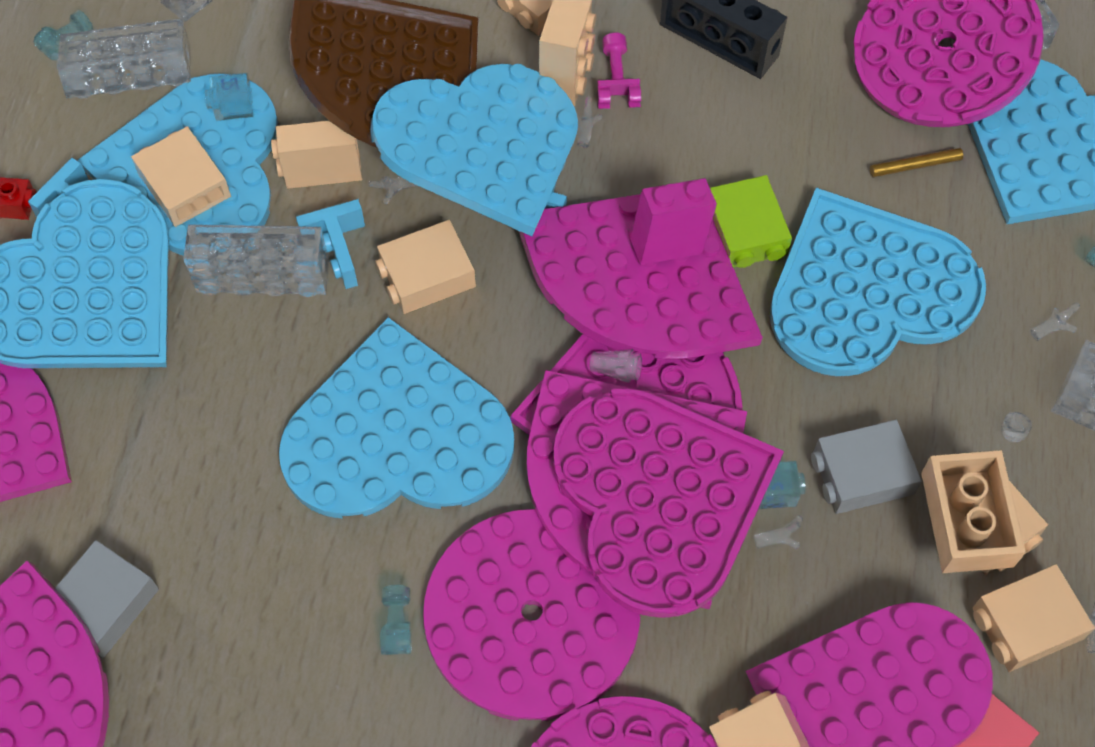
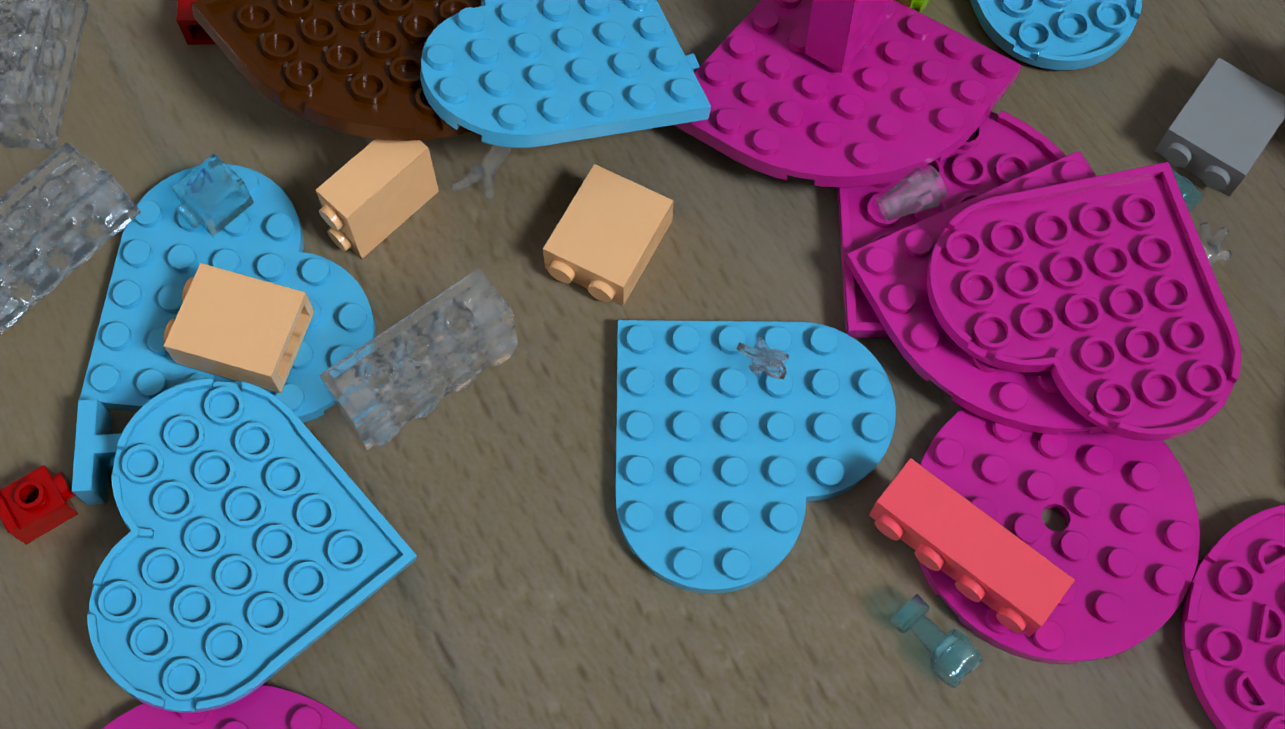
camera: 40 degrees left, 5 degrees up
(334, 223) = (463, 257): medium azure bracket -> none
(441, 394) = (765, 359): none -> clear plant
(454, 580) = (970, 548): none -> coral brick

